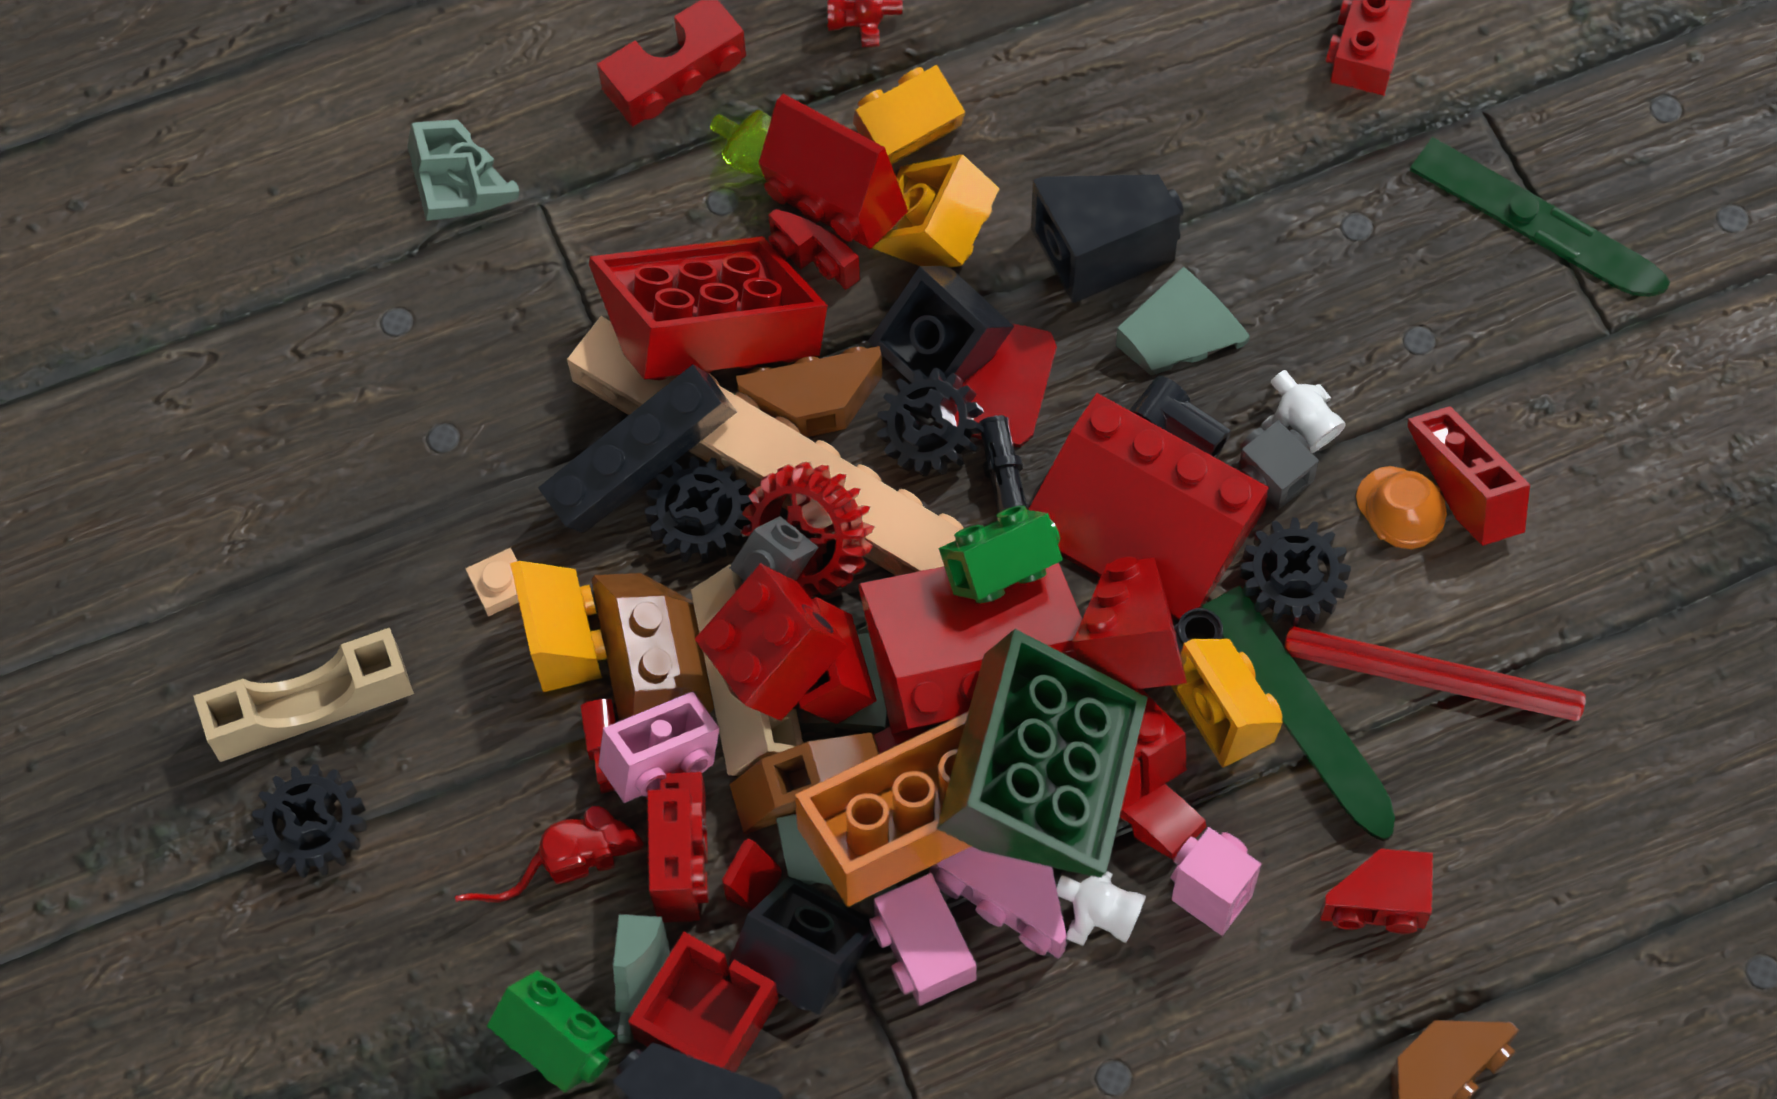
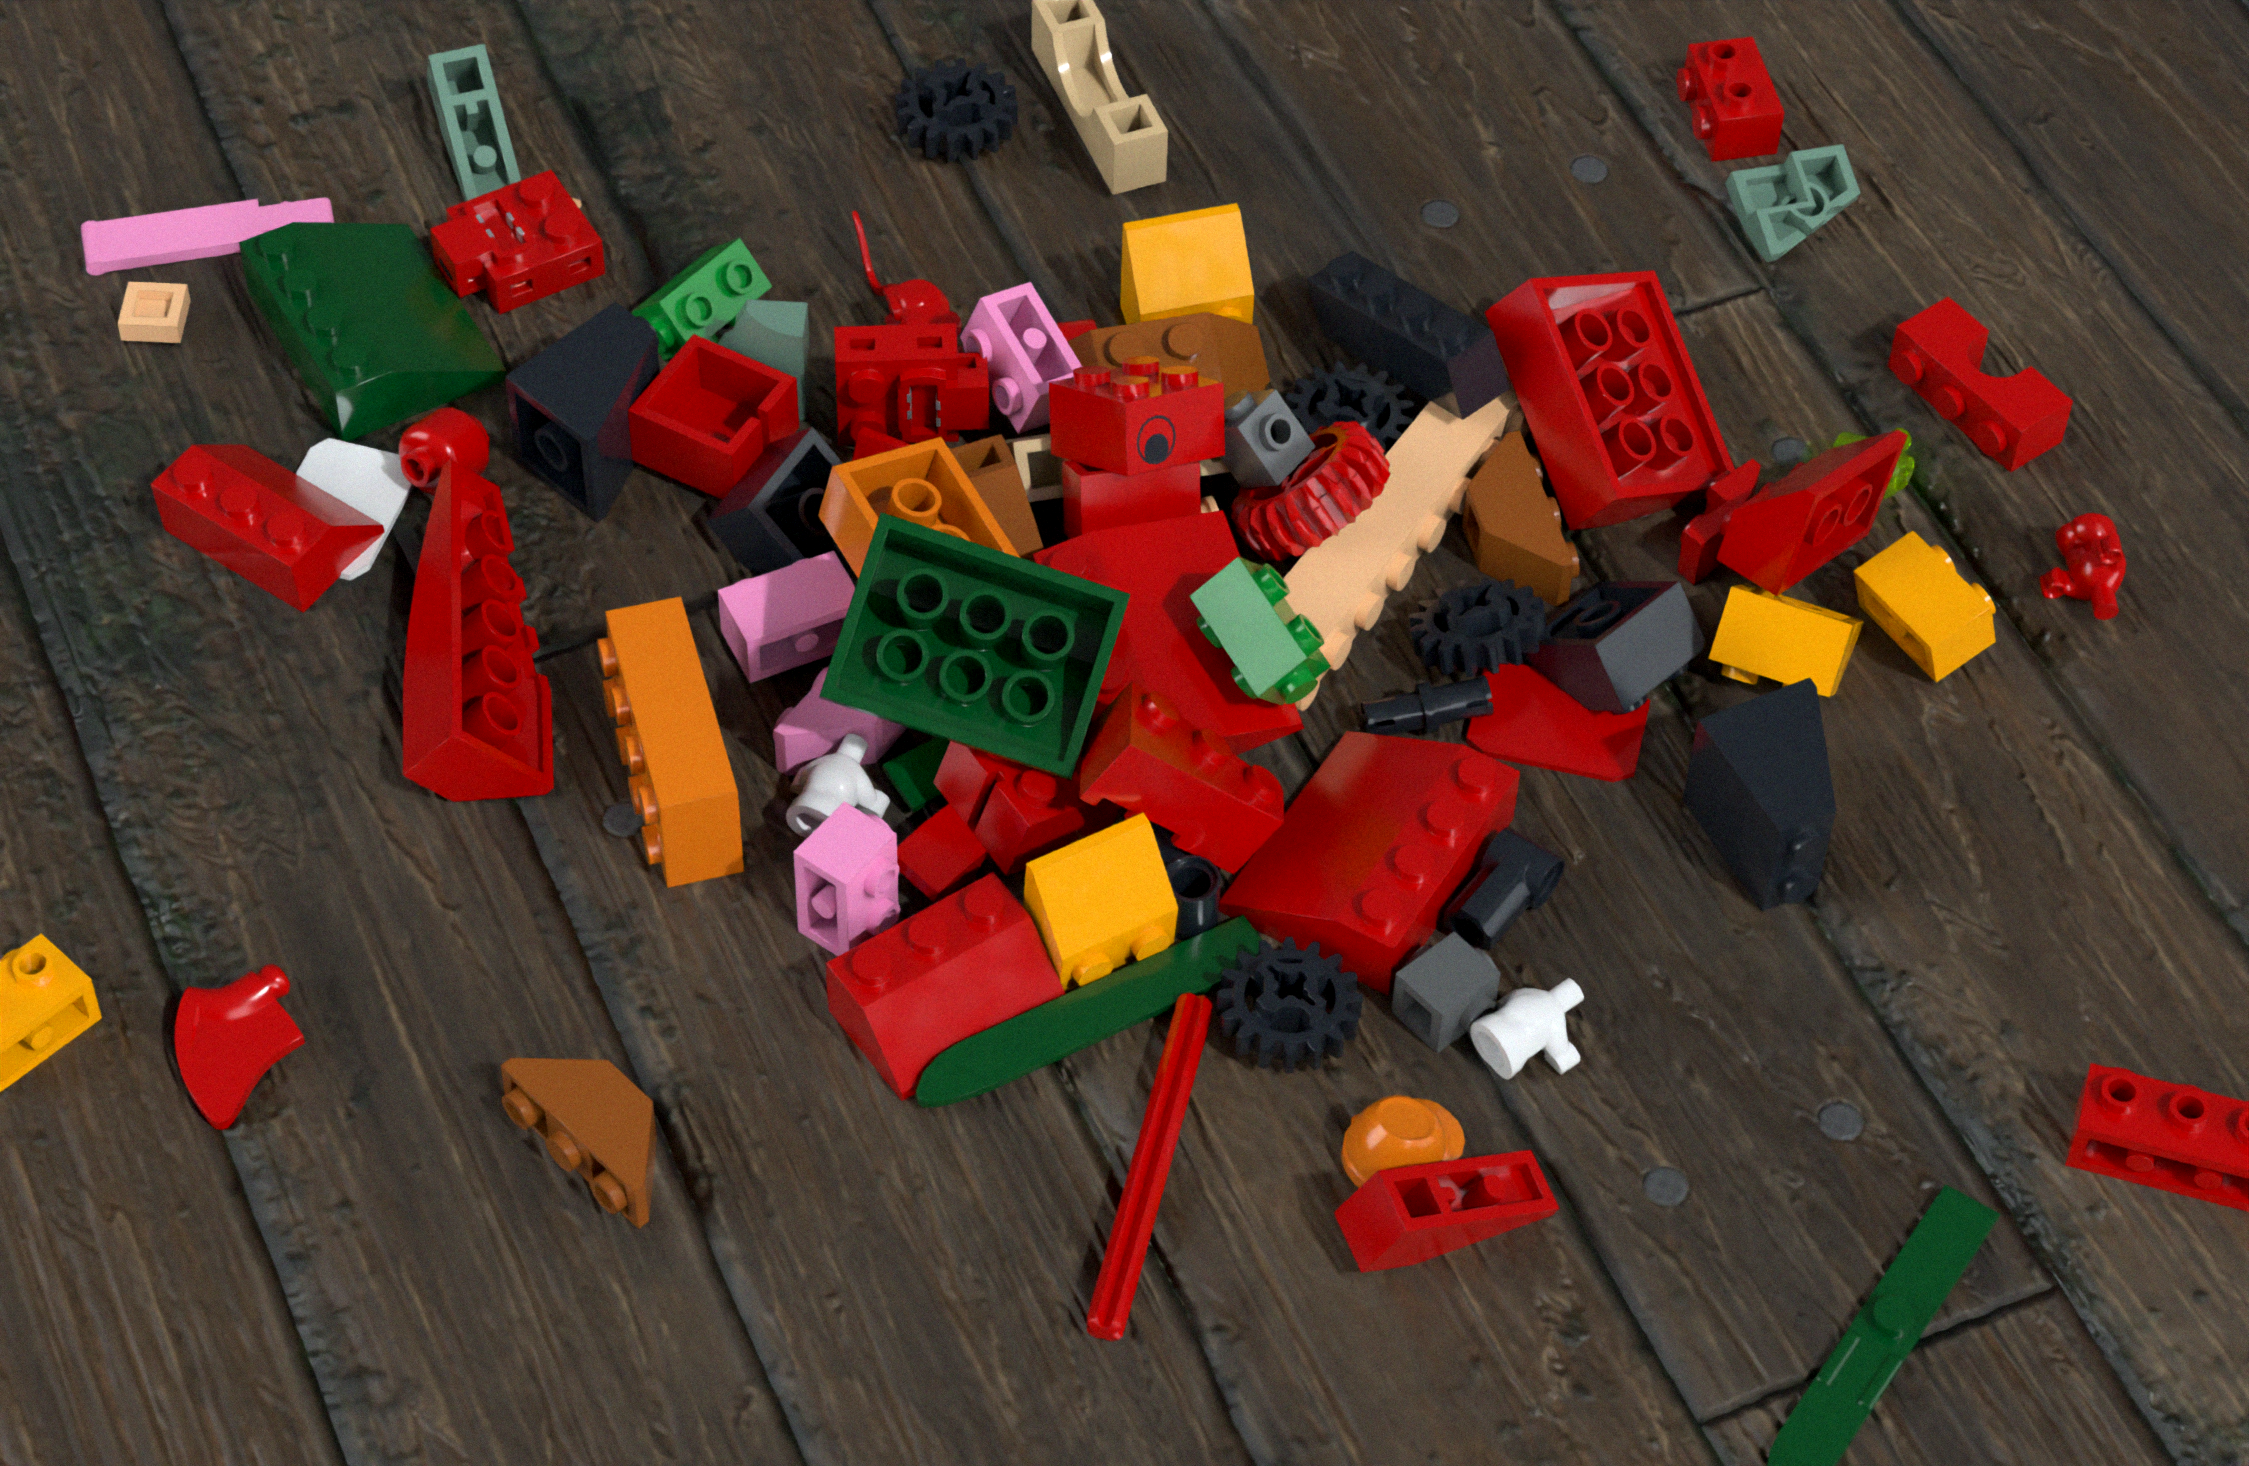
camera: 85 degrees right, 15 degrees down
(339, 202) = (1731, 99): none -> red brick
(494, 581) = (1266, 257): light nougat plate -> none
(1075, 1024) = (671, 743): none -> orange brick
(1178, 326) = (1651, 895): sand green slope -> none
(1288, 817) = (940, 980): none -> red slope
(1385, 890) = (841, 1081): red slope -> none

